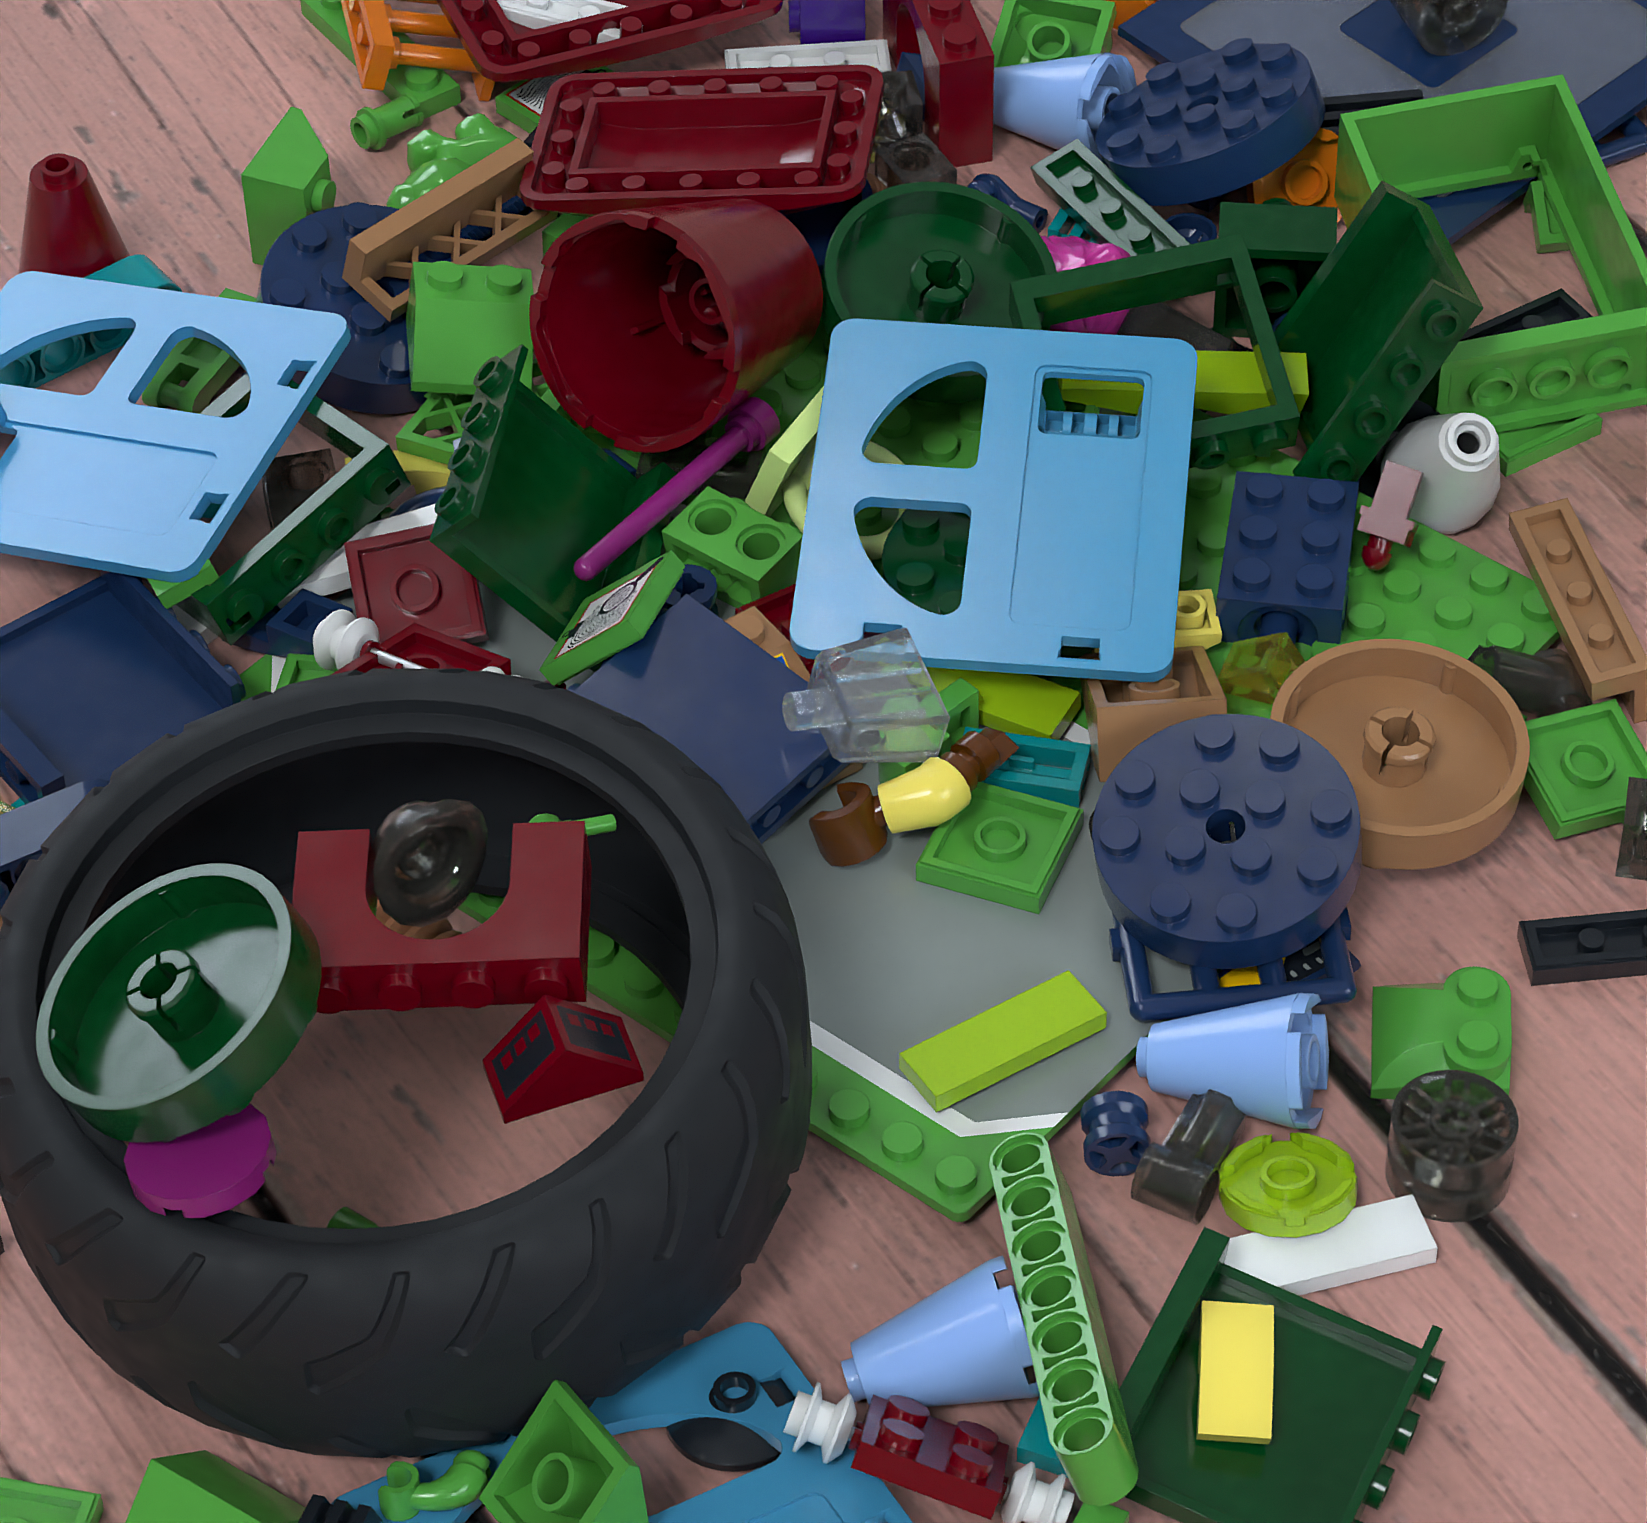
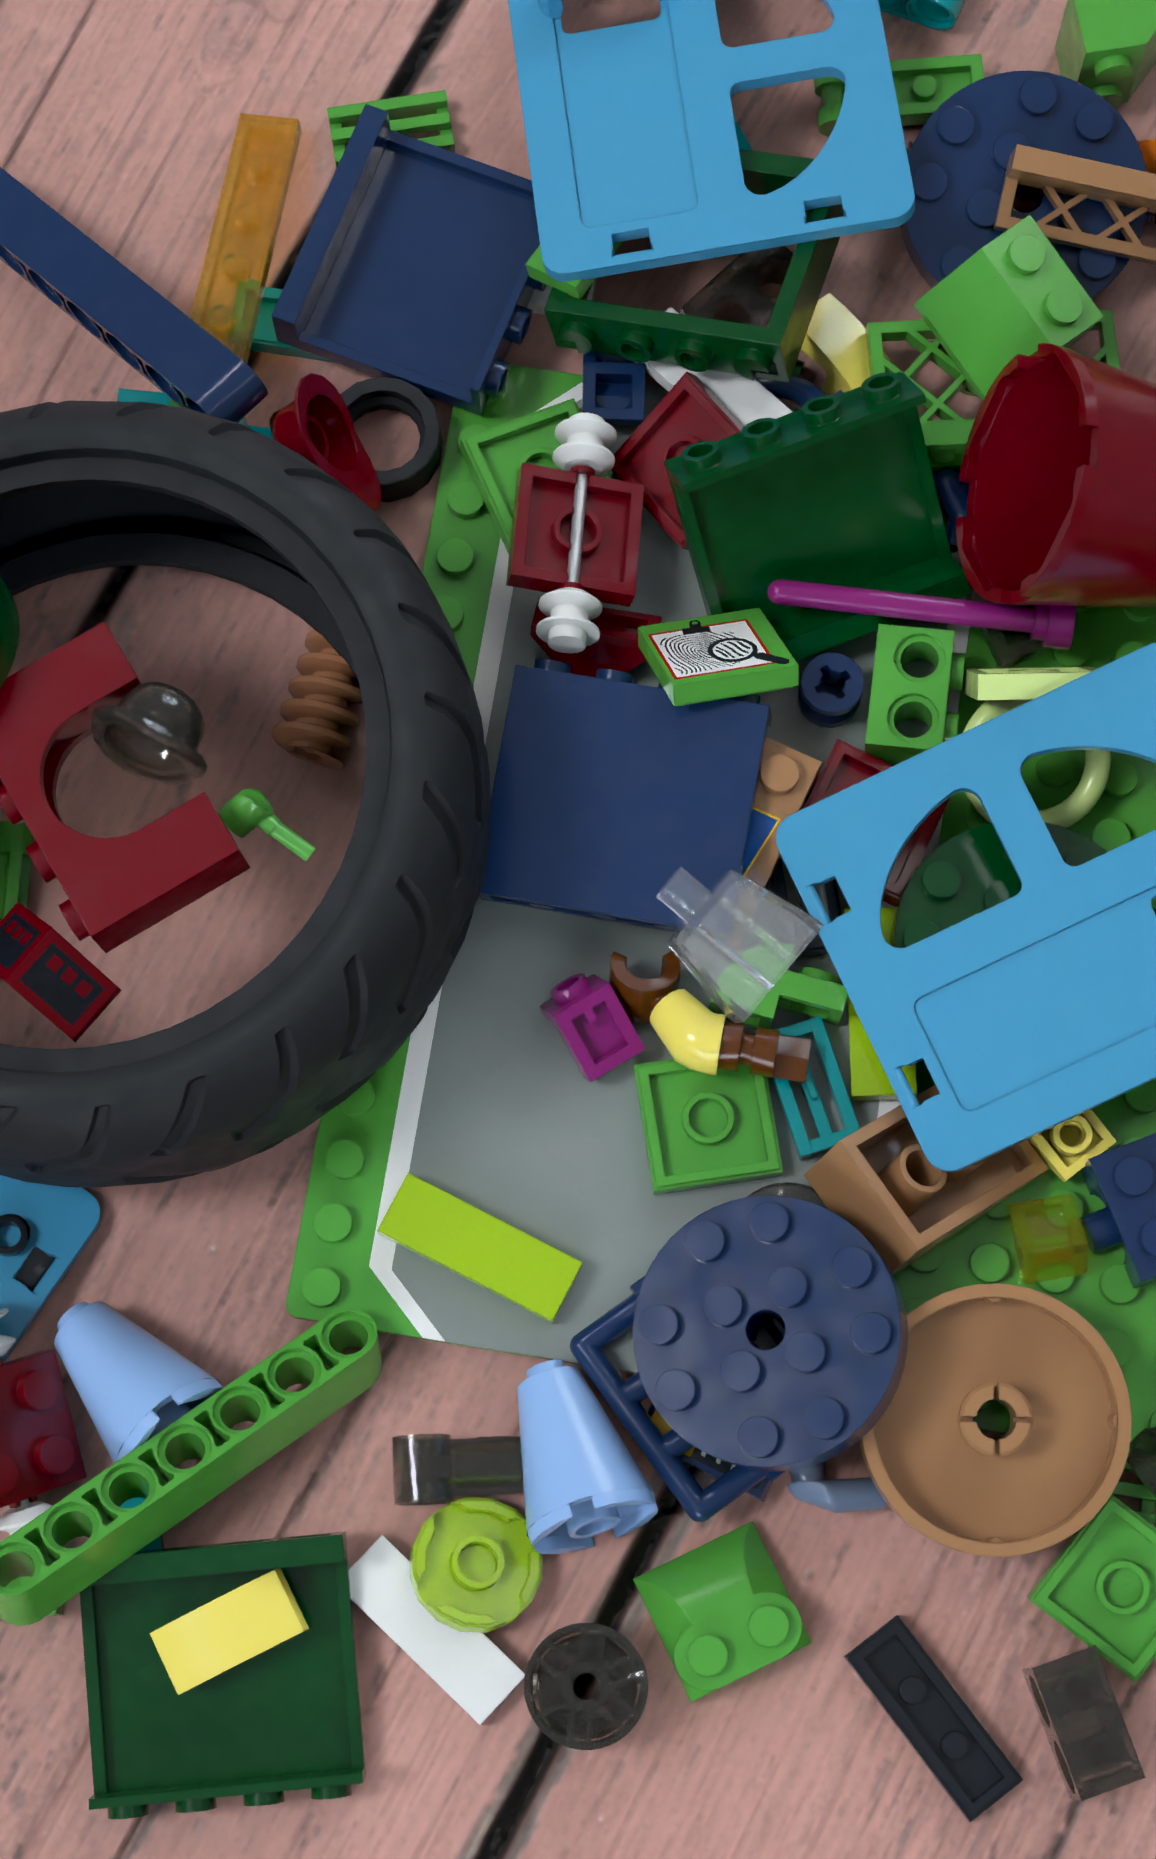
camera: 60 degrees right, 30 degrees up
(858, 868) = (592, 1024): none -> magenta bracket
(1114, 1132) = (445, 1392): dark blue wheel -> none
(1384, 916) = (835, 1494): none -> sand blue arm

